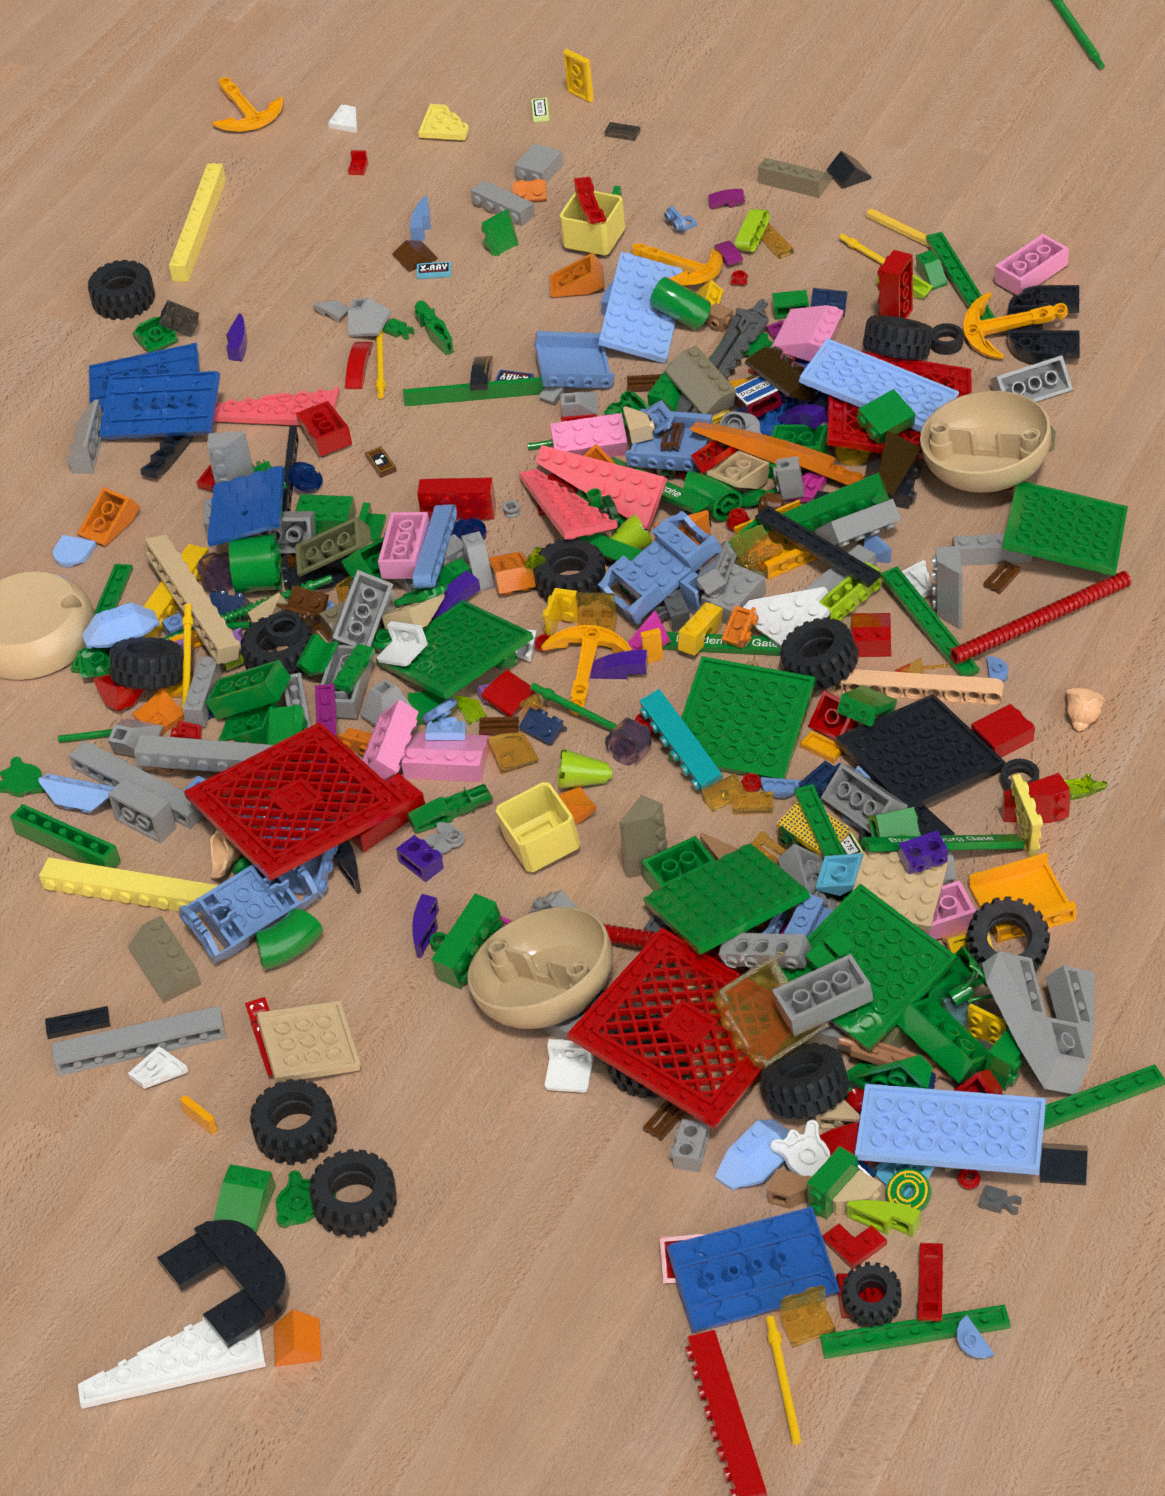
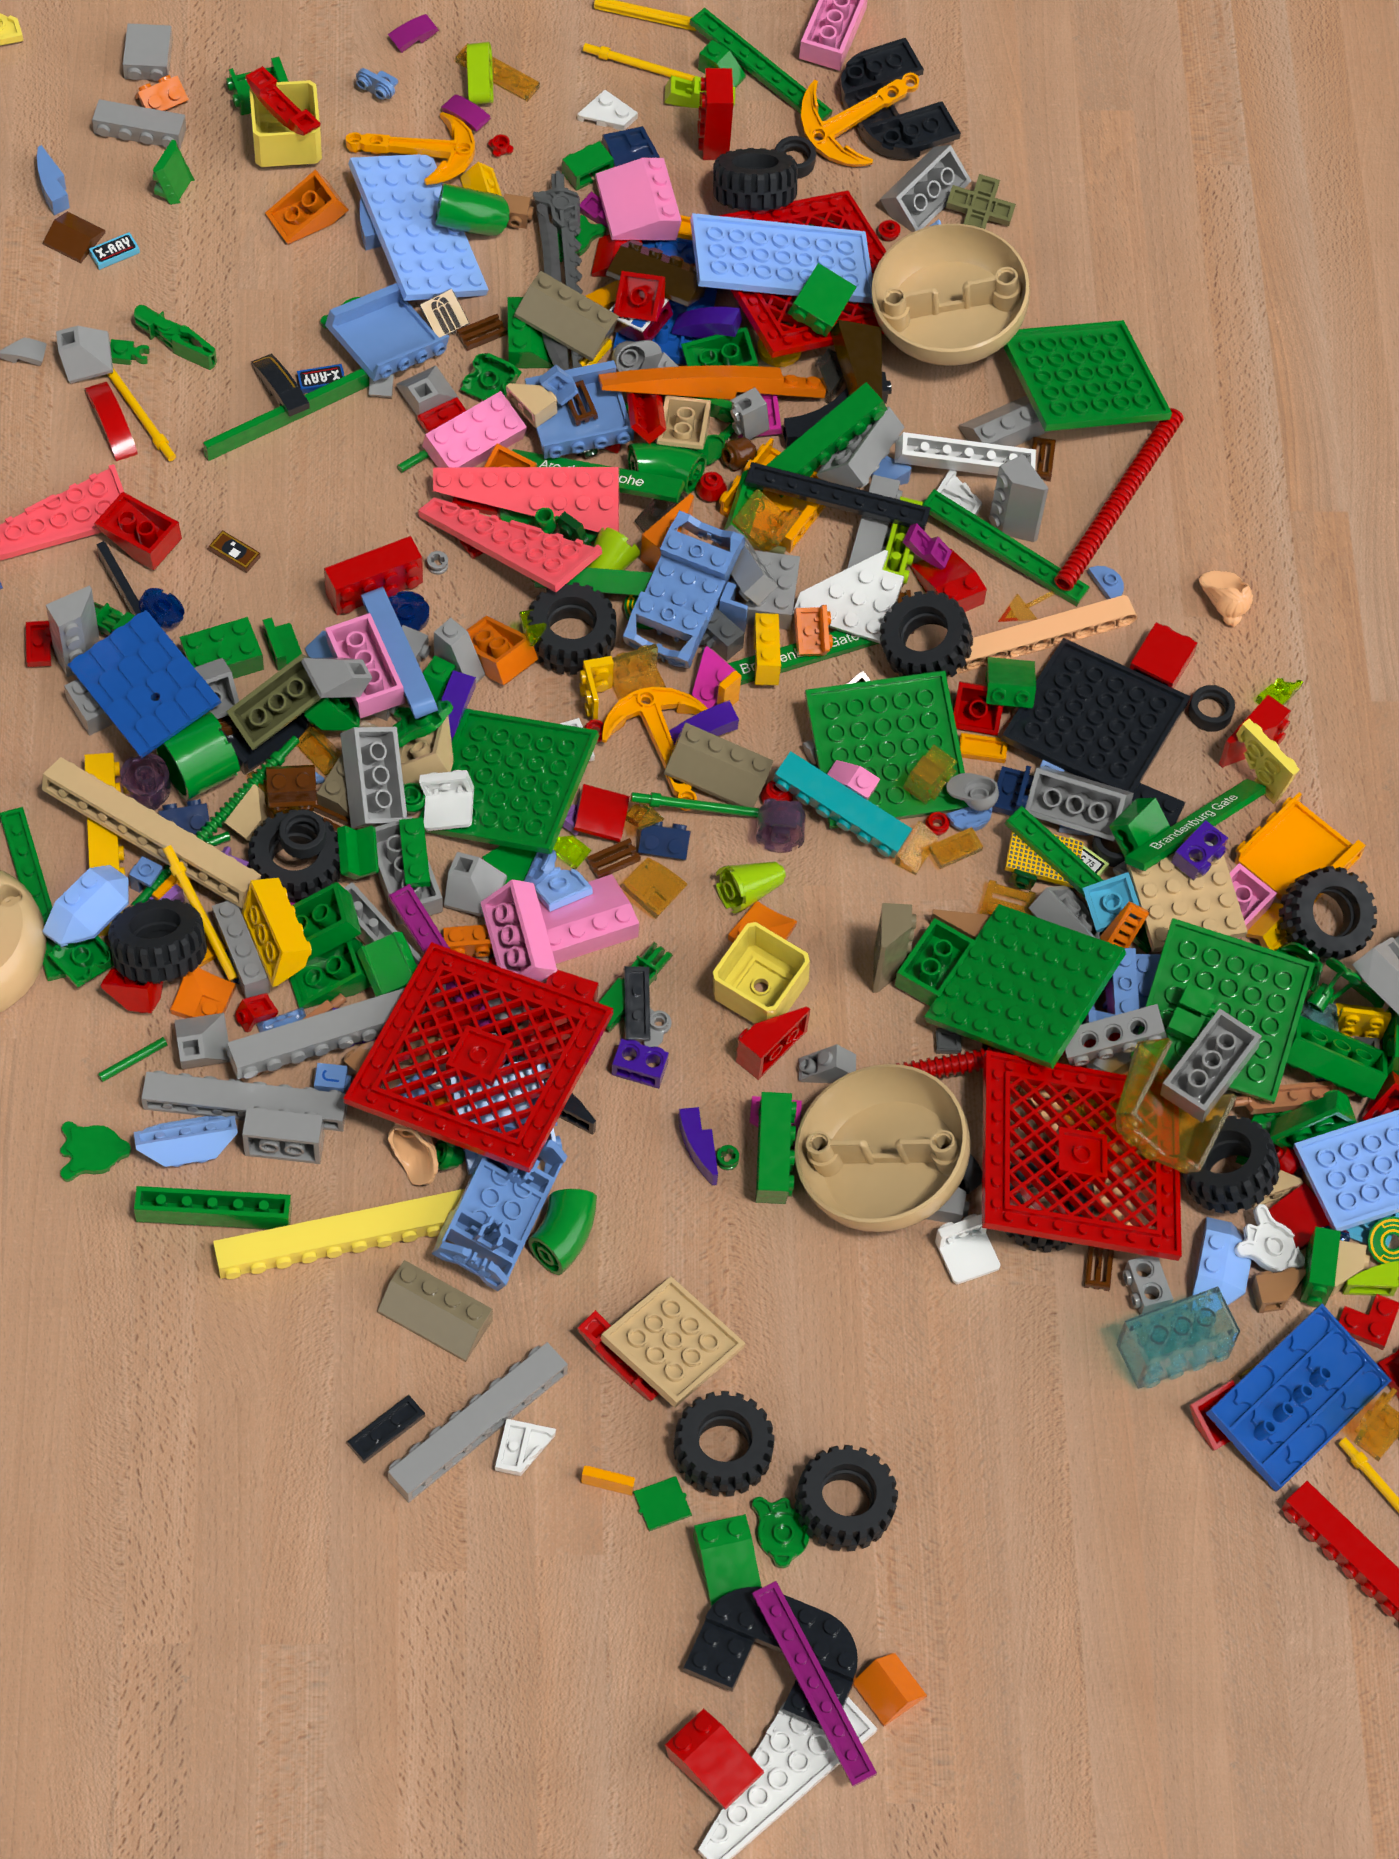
camera: 40 degrees left, 15 degrees up
(130, 1326) = (713, 1759): none -> red slope
(223, 677) = (275, 930): none -> yellow slope
(228, 1148) = (662, 1503): none -> green piece
(230, 1302) = (814, 1684): none -> magenta plate
(369, 537) = (337, 676): none -> light grey slope
(442, 817) = (636, 1003): none -> black tile
(522, 874) = (770, 1040): none -> red slope
(607, 687) = (718, 766): none -> dark tan slope
(623, 362) = (444, 313): none -> piece
(679, 1184) = (1178, 1338): none -> clear light blue brick
(701, 729) = (854, 778): none -> bright pink slope
(757, 380) = (640, 296): none -> red slope
(758, 741) = (929, 775): none -> clear yellow brick
(787, 766) = (976, 790): none -> light grey cap
(829, 900) = (1124, 940): none -> orange slope
(830, 278) = (609, 112): none -> white wing
(866, 603) = (929, 549): none -> magenta slope
(923, 545) = (956, 454): none -> white brick
(1067, 404) = (981, 203): none -> olive plate

